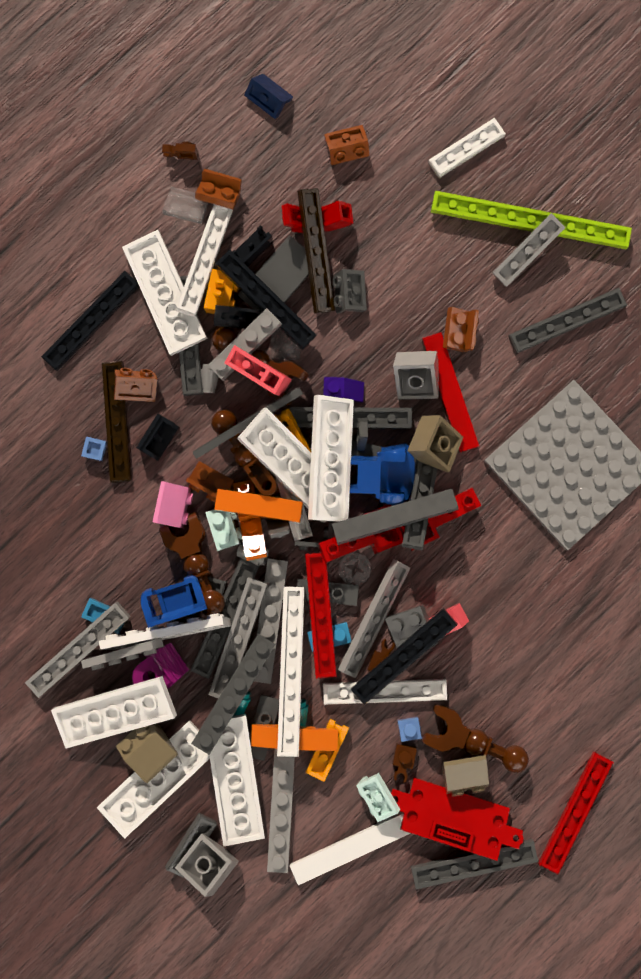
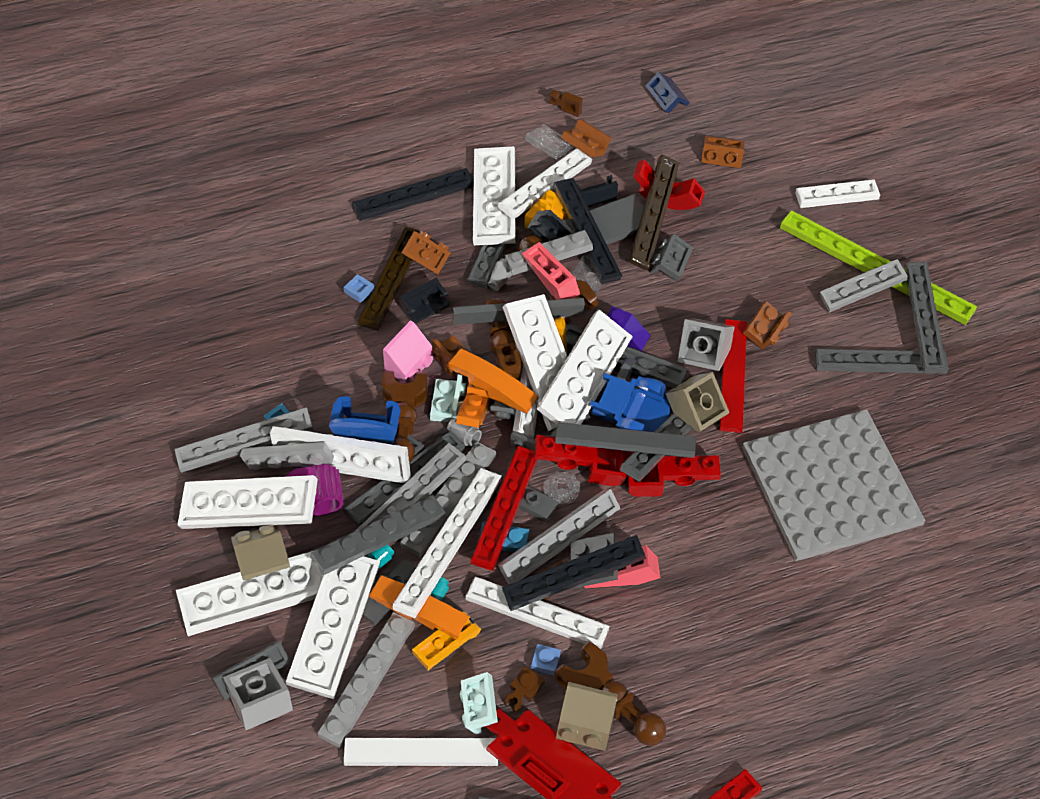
camera: 20 degrees right, 30 degrees down
(592, 260) = (925, 318): none -> dark grey tile

